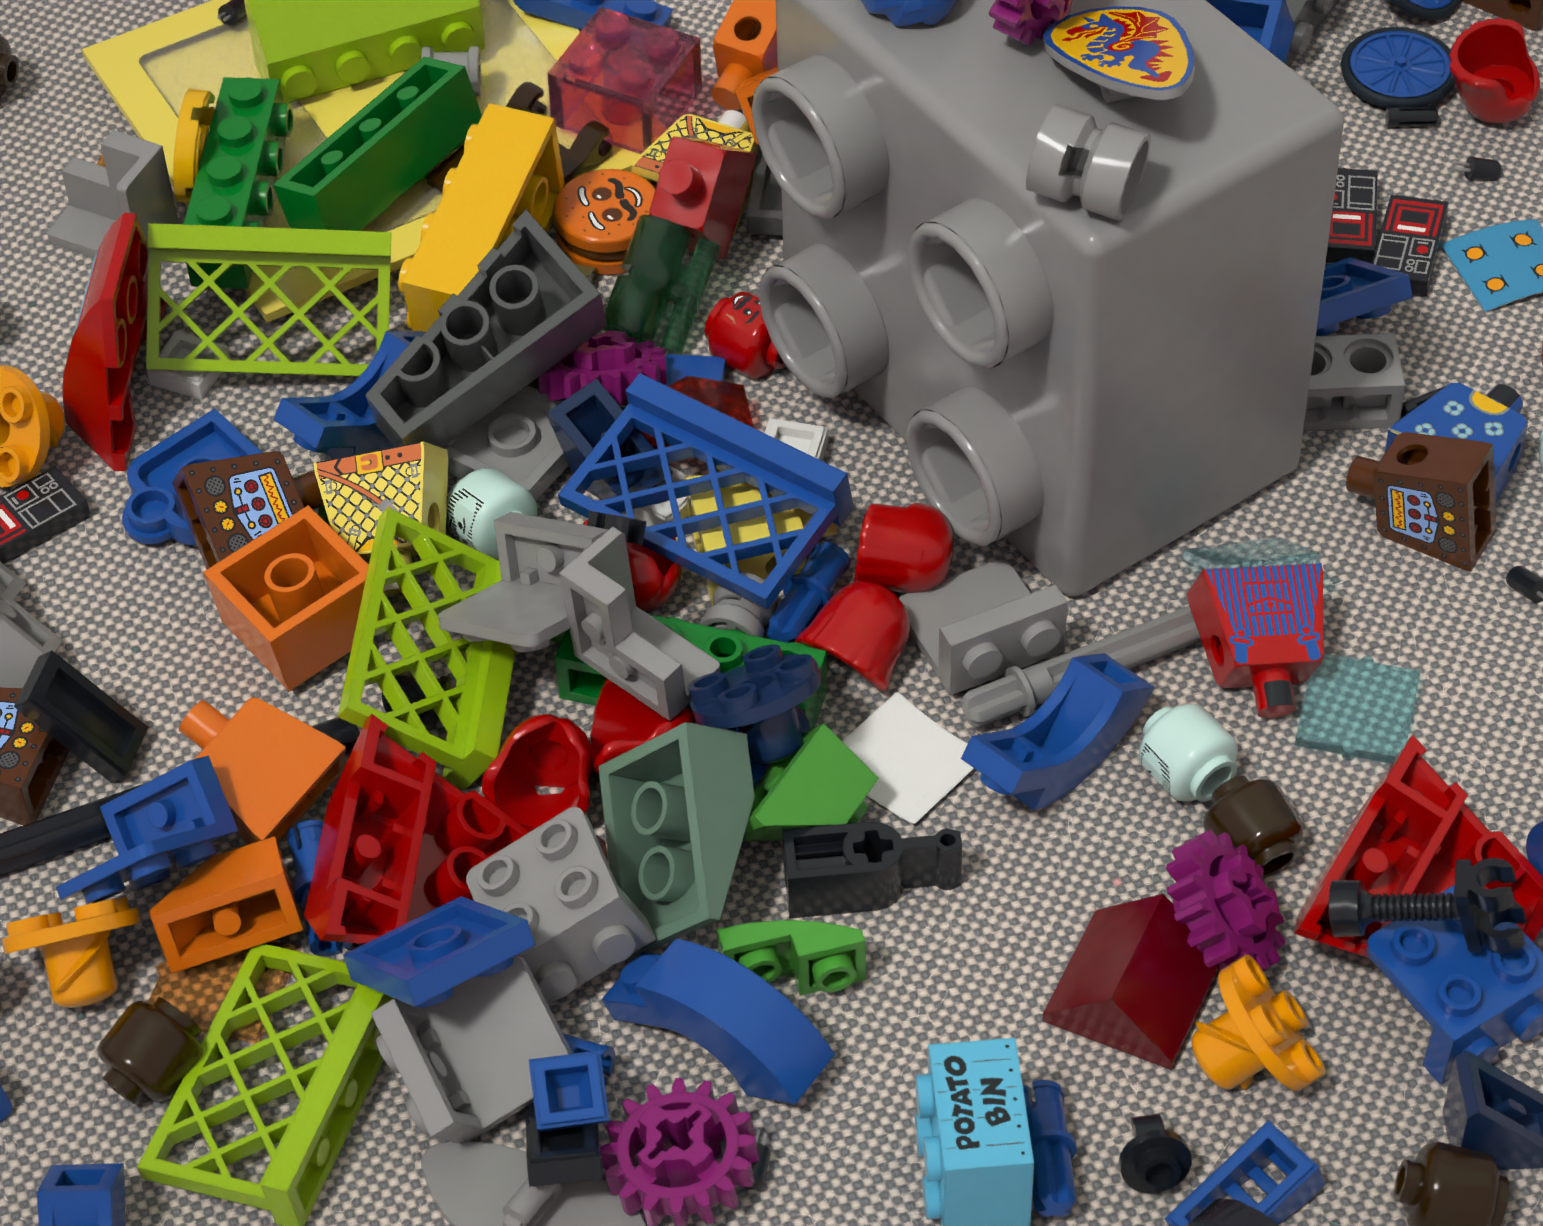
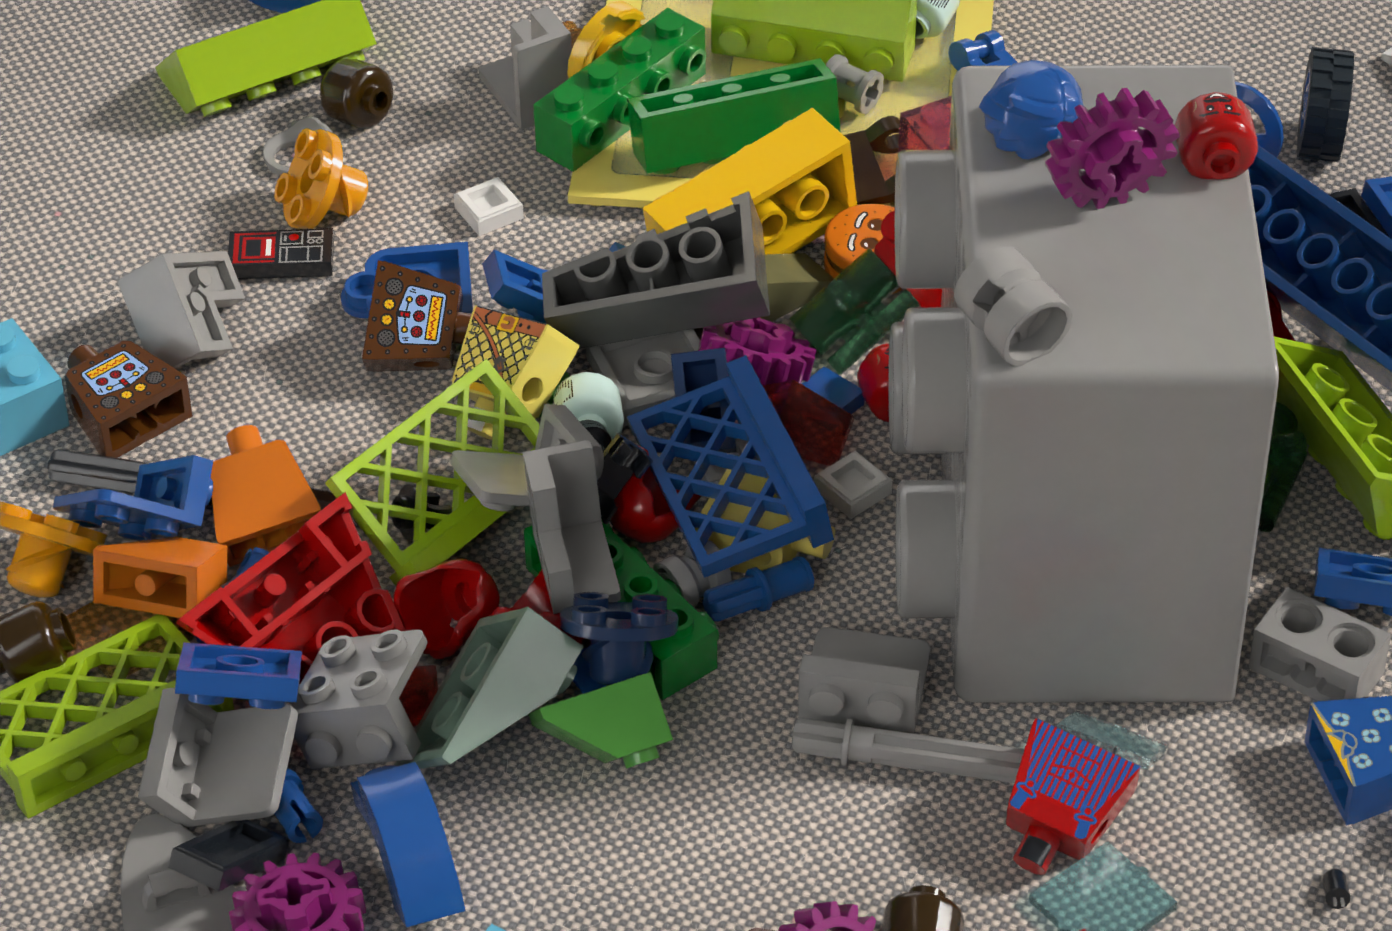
camera: 35 degrees right, 5 degrees down
(81, 716) = (182, 399): black tile -> none
(107, 344) = (435, 148): red wedge -> none
(264, 248) = (570, 137): lime fence -> none
(292, 596) = (385, 385): orange brick -> none
(568, 1091) = (248, 819): blue slope -> none
(814, 952) = (517, 835): bright green slope -> none
(863, 629) = (764, 635): red hair -> none
(863, 866) = (608, 797): black piece -> none
(904, 547) = (847, 588): red hair -> none
(910, 756) = (724, 744): white sticker -> none
(1065, 736) = (838, 793): blue arch -> none
(1124, 51) = (1129, 241): shield -> none
(1188, 752) = (922, 850): light aqua head -> none
(1432, 495) = (1304, 776): reddish brown torso -> none

